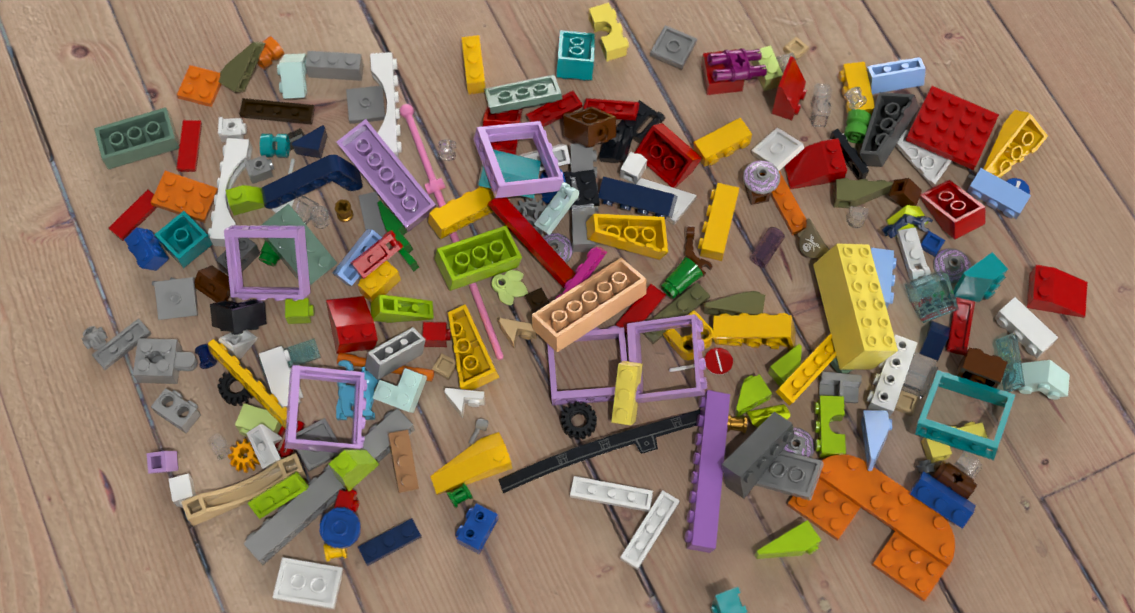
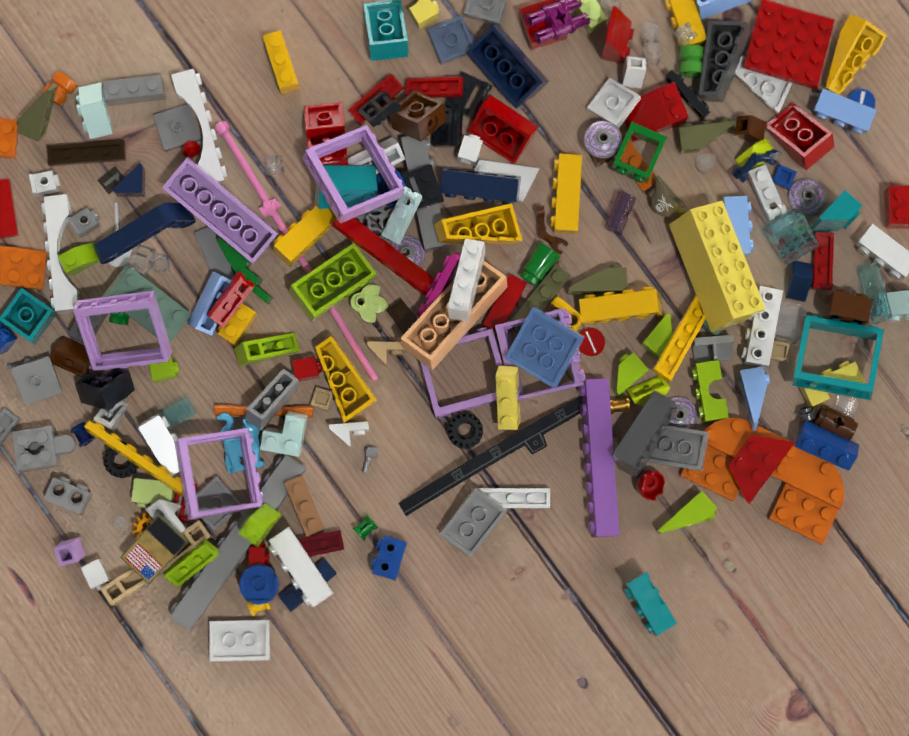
camera: 15 degrees left, 15 degrees up
(245, 473) = (154, 549): none -> tile
(268, 145) = (87, 194): teal wheel -> none
(343, 210) = (182, 258): pearl gold bush -> none
(351, 324) = (220, 373): red slope -> none
(375, 122) = (191, 149): none -> red plate
(386, 520) = (301, 567): none -> white brick
(404, 503) = (322, 543): none -> dark red plate
(477, 462) = (373, 491): yellow wedge -> none
(523, 94) = (339, 88): sand green plate -> none
(551, 115) = (374, 113): none -> black plate
(568, 508) = (473, 521): none -> light grey plate
(606, 273) = (466, 280): none -> white brick
(634, 73) = (450, 39): none -> sand blue tile
(649, 530) = (553, 526): white plate -> none
(671, 348) = (544, 347): none -> medium blue plate
(682, 101) = (507, 66): none -> dark blue slope
(723, 142) = (556, 104): yellow brick -> none
(756, 505) = (650, 484): none -> red hair
(801, 125) = (634, 72): none -> white brick
(805, 181) = (646, 135): none -> green window
(869, 502) = (757, 462): none -> red wing

